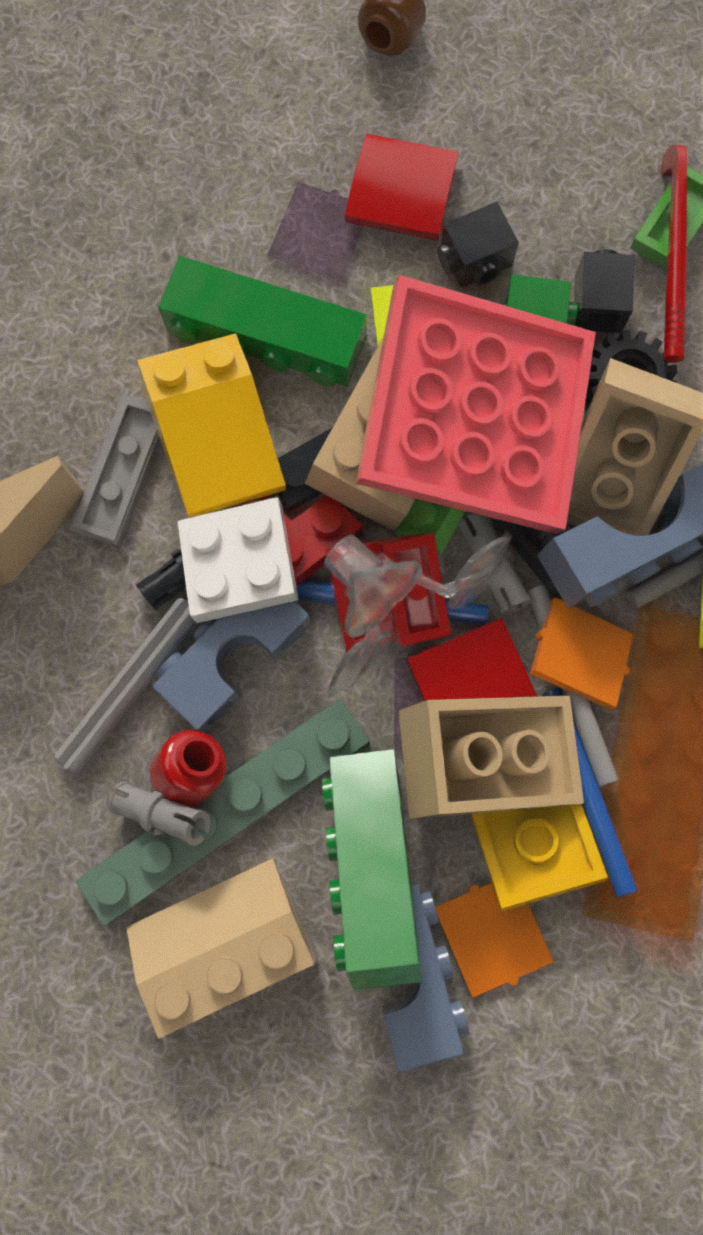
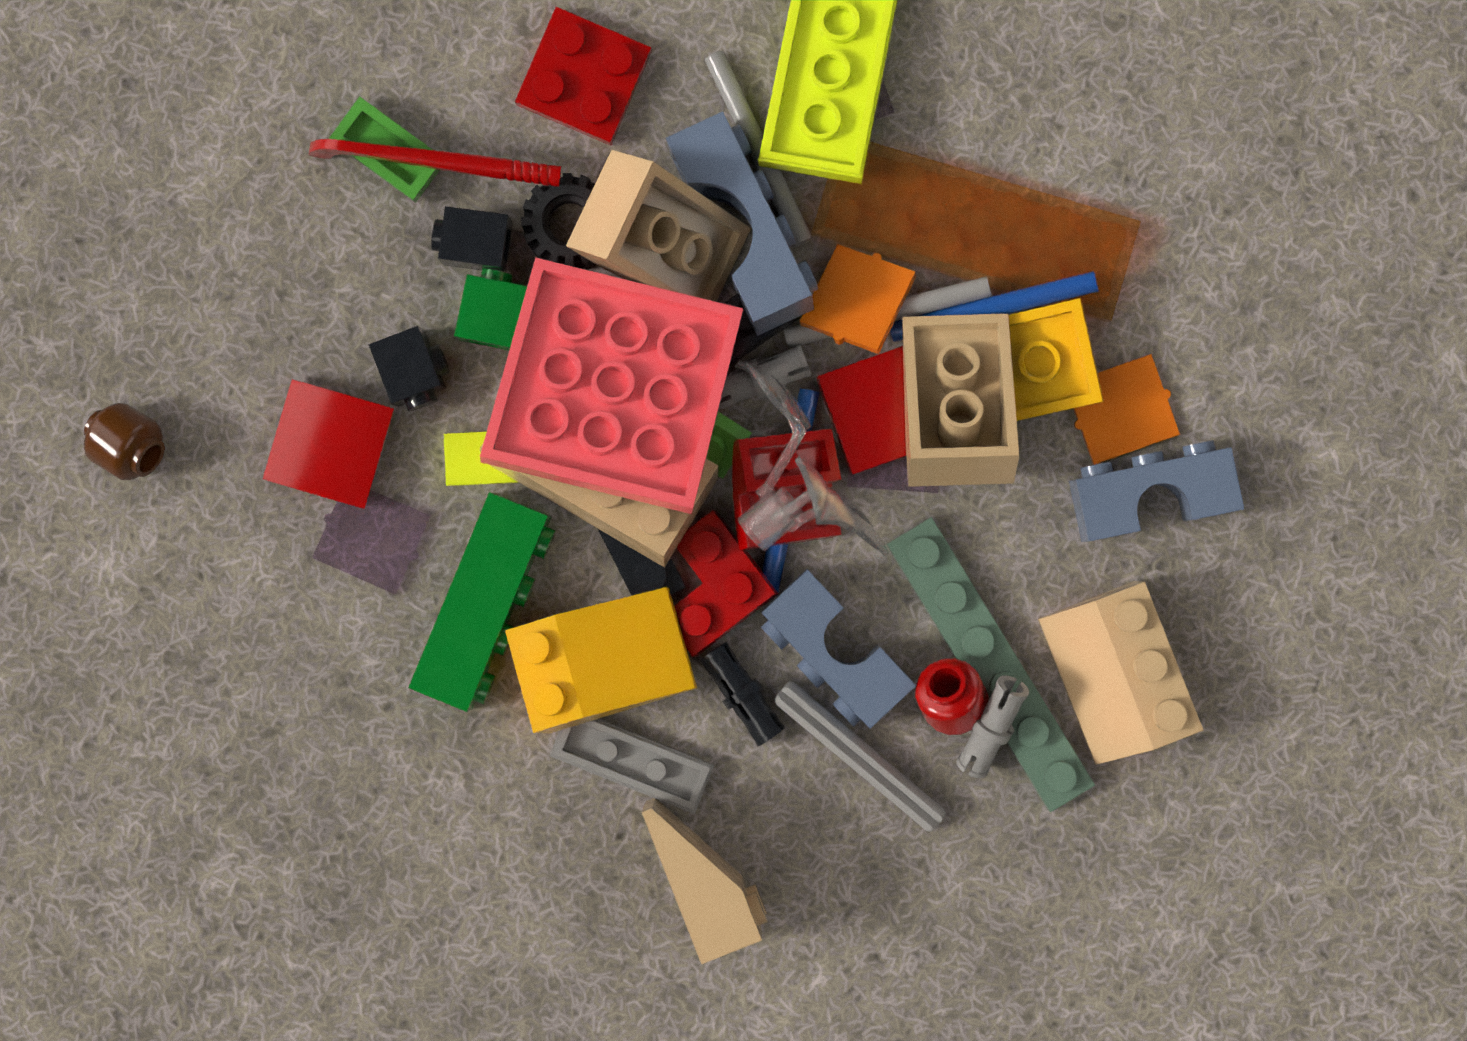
camera: 90 degrees left, 10 degrees up
(237, 560) = (748, 638): white plate -> none
(373, 870) = (1059, 520): brick -> none

